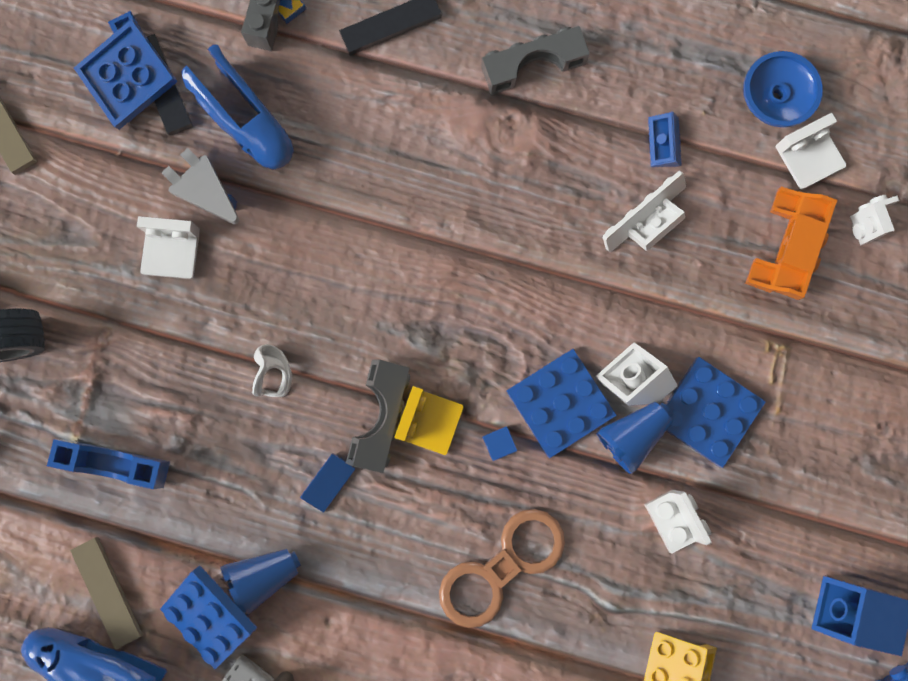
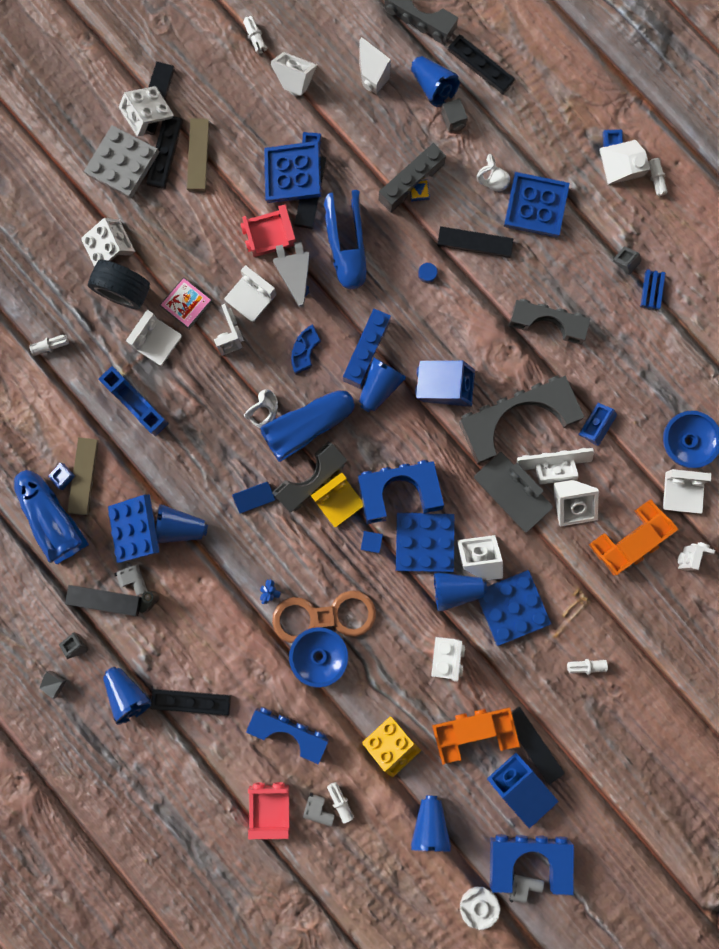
camera: 35 degrees right, 0 degrees up
(79, 610) = (61, 476): none -> tile
(84, 373) = (153, 338): none -> white bracket
(98, 306) = (186, 303): none -> tile
(141, 162) = (268, 231): none -> coral panel
(180, 318) = (229, 342): none -> white bracket
(272, 271) = (303, 348): none -> blue tile
(329, 363) = (299, 427): none -> blue piece
(346, 223) = (366, 348): none -> blue arch
(359, 92) = (427, 272): none -> blue tile
(388, 256) = (379, 385): none -> blue cone
(419, 583) = (269, 592): none -> blue plant
(462, 204) = (445, 382): none -> slope
(506, 329) = (421, 475): none -> blue arch
(530, 641) = (314, 671): none -> blue dish
(597, 141) = (553, 396): none -> dark grey arch
(623, 277) = (514, 491): none -> dark grey bracket
(700, 245) = (575, 502): none -> white slope
(762, 582) = (474, 728): none -> orange bracket
(838, 423) = (587, 666): none -> white axle
(838, 554) = (536, 747): none -> black tile

